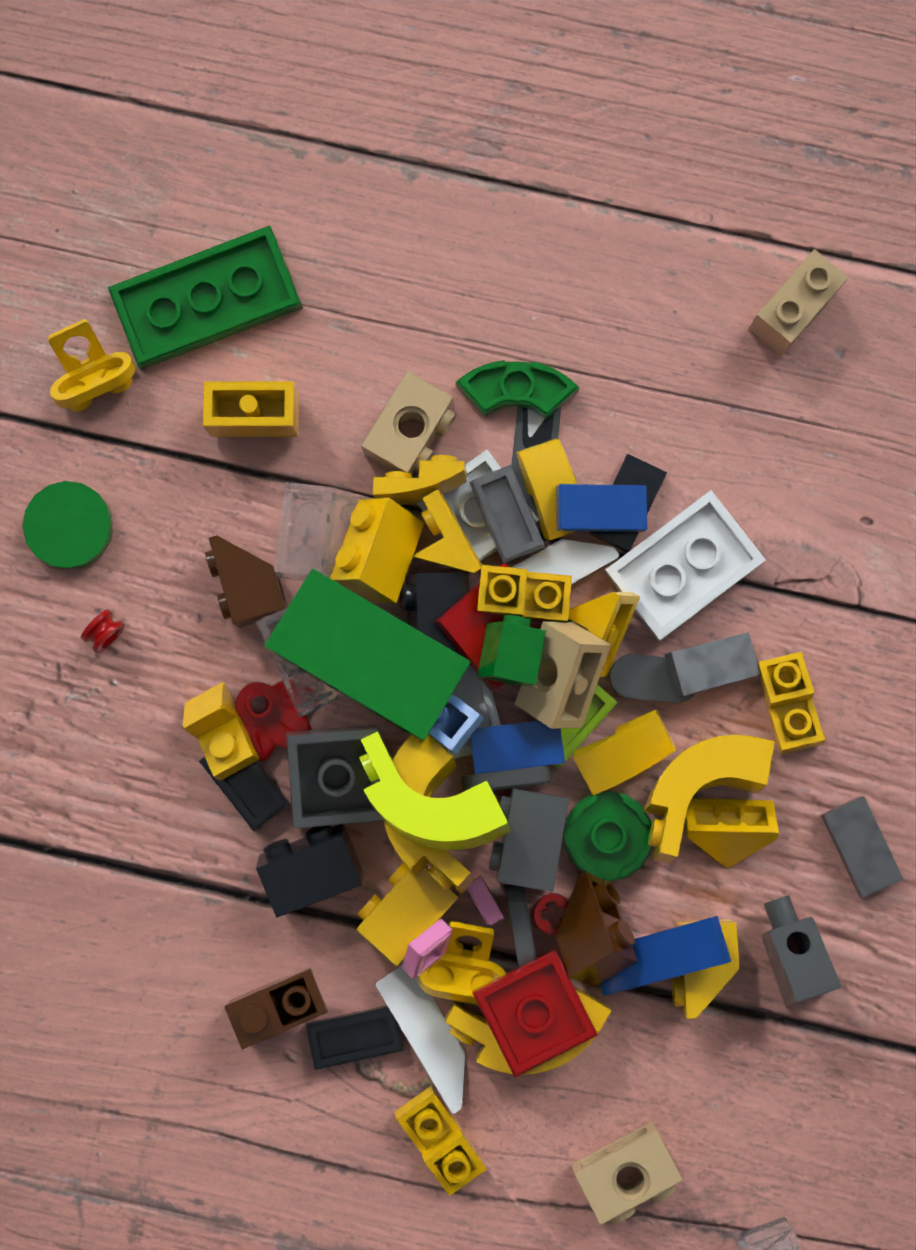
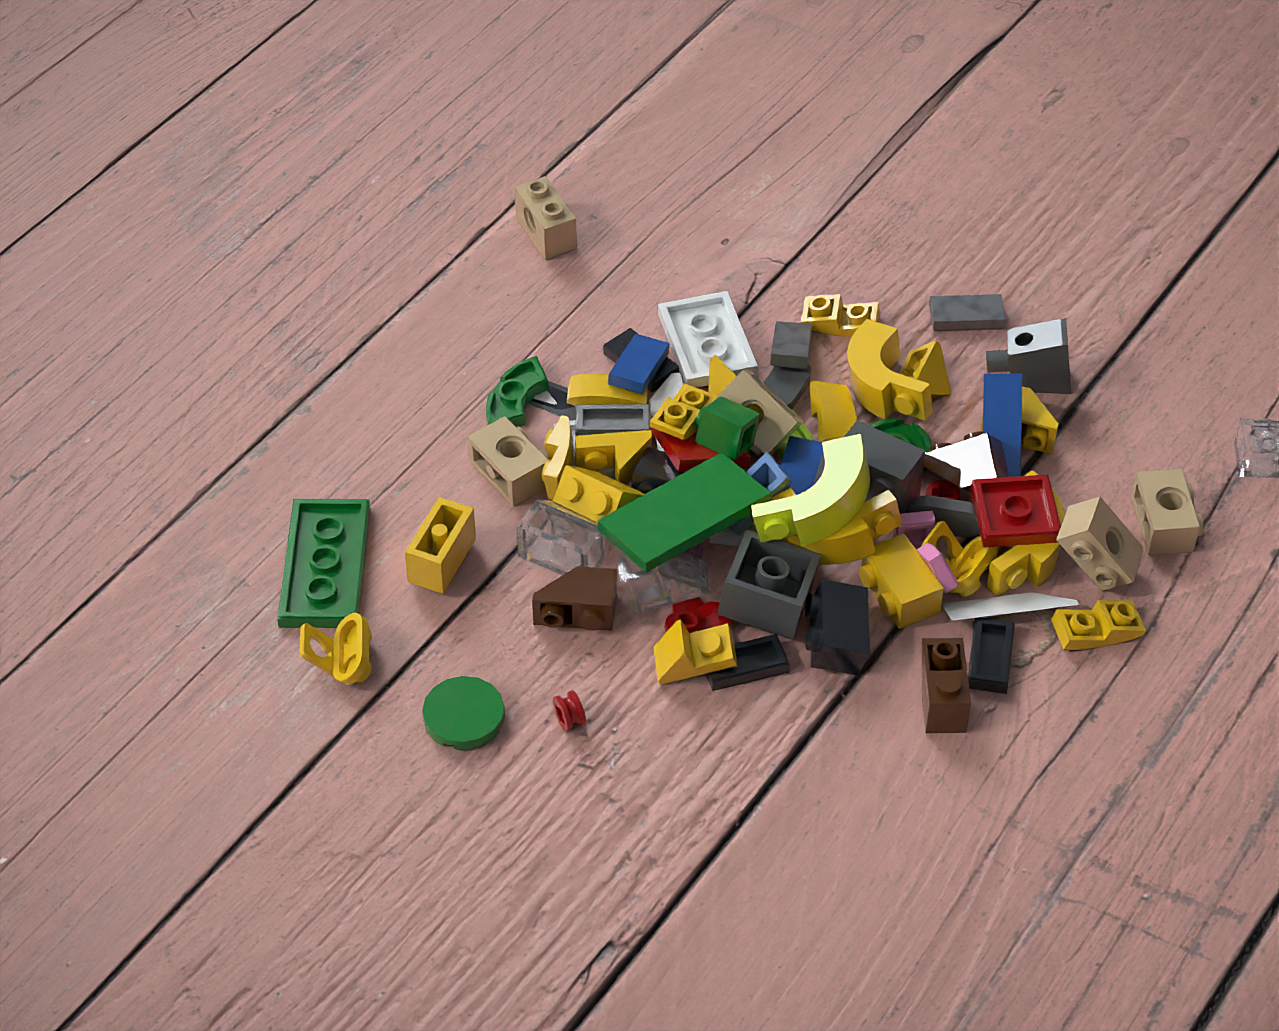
camera: 70 degrees left, 35 degrees down
(524, 1120) = (1100, 543): none -> tan brick

